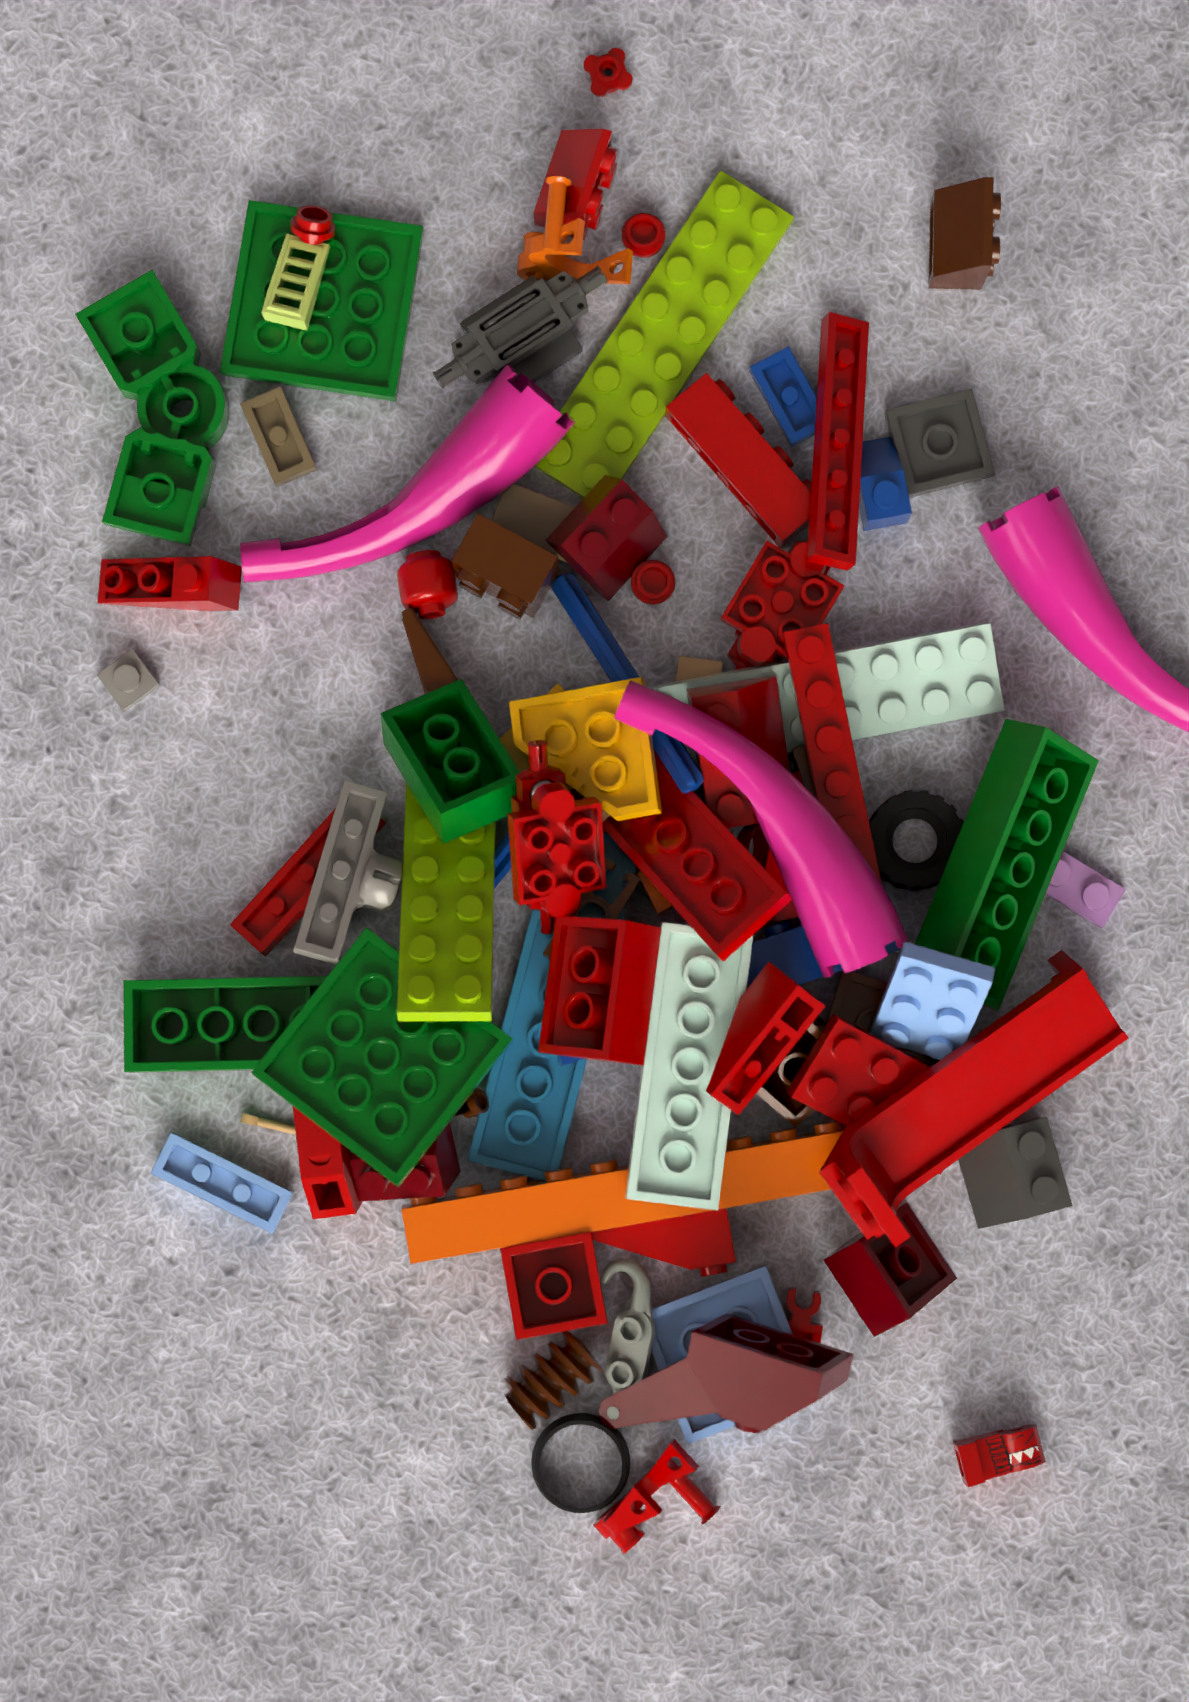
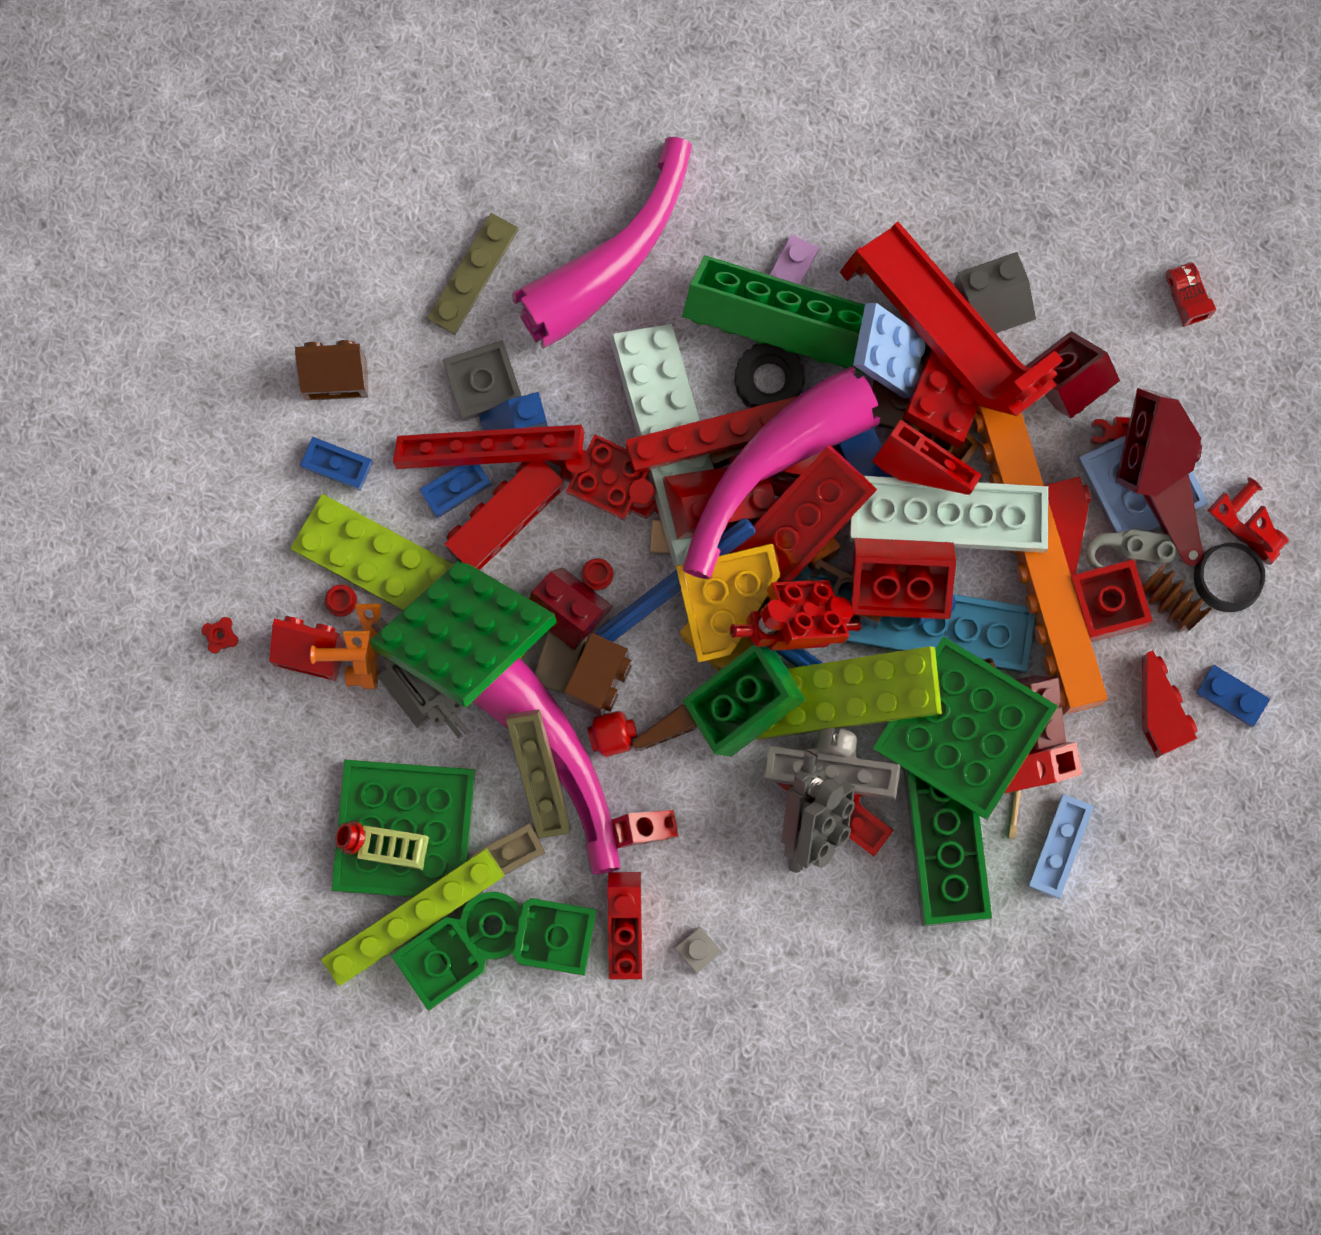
camera: 95 degrees left, 5 degrees down
(203, 304) = (412, 917): none -> lime plate
(280, 842) = (815, 816): none -> dark grey piece
(293, 619) = (644, 828): none -> red leg
(376, 477) = (538, 773): none -> olive plate
(389, 1343) = (1162, 714): none -> red slope
(411, 1448) = (1233, 696): none -> blue plate
(570, 381) = (463, 632): none -> green plate
(834, 238) = (336, 463): none -> blue plate
(1097, 440) = (473, 273): none -> olive plate

